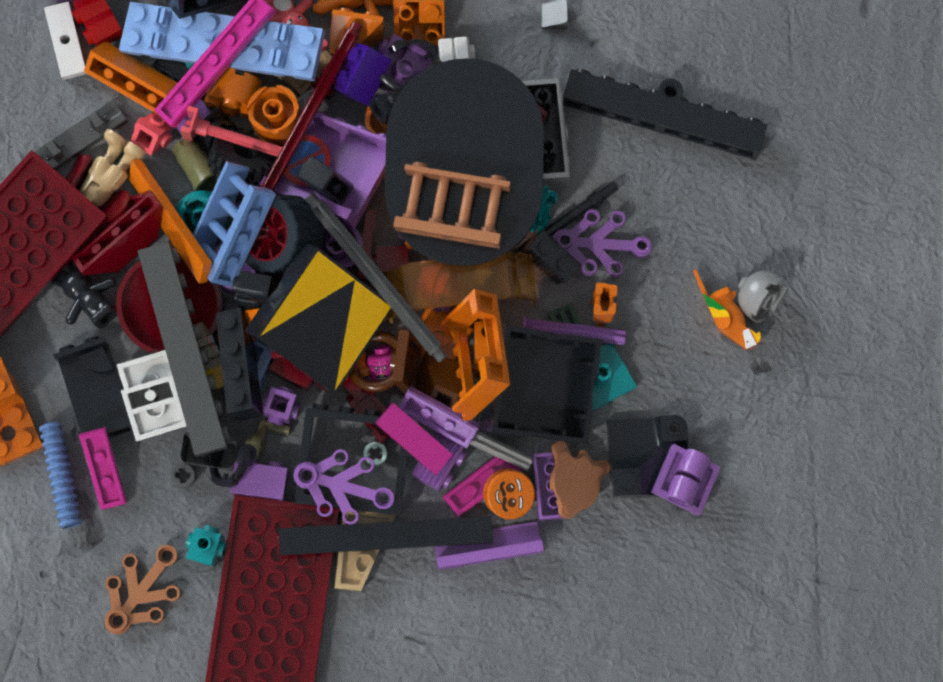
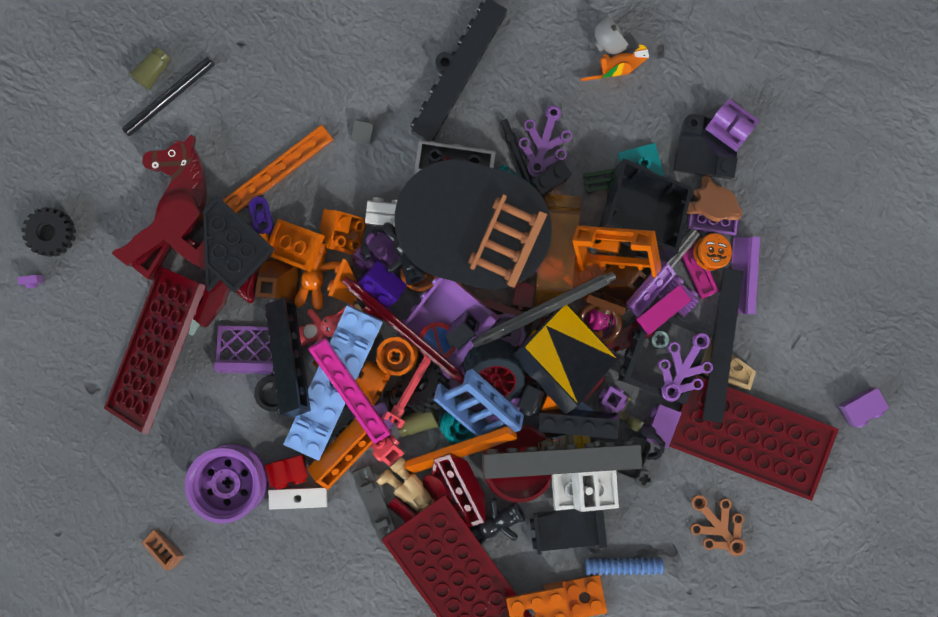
camera: 70 degrees left, 10 degrees up
(103, 468) = (627, 535): dark pink tile -> none
(214, 550) = (706, 476): teal brick -> none
(603, 303) = (592, 150): orange animal -> none
(608, 335) = (605, 179): medium lavender axle -> none

